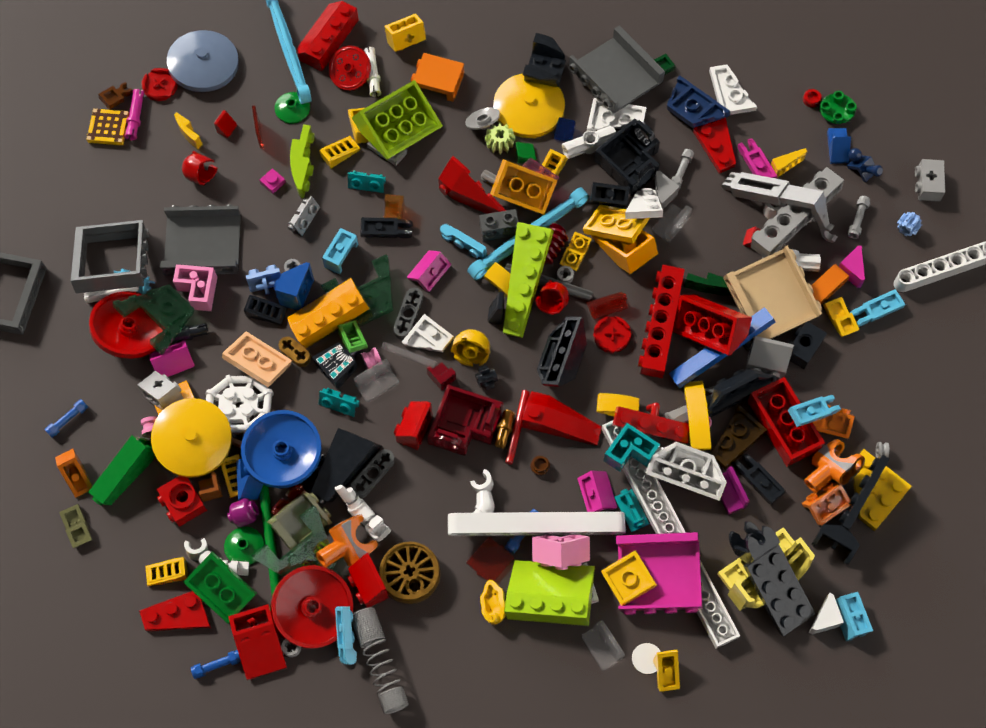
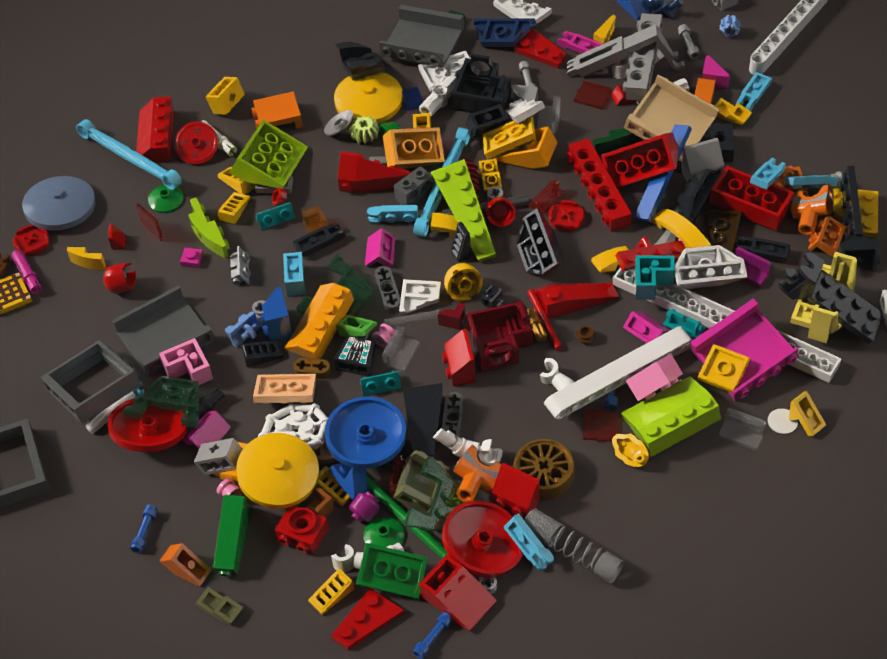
camera: 30 degrees left, 15 degrees down
(381, 165) = (279, 196): none -> red tile
(729, 221) = (592, 95): none -> clear red piece
(853, 438) = (811, 181): none -> medium azure hinge

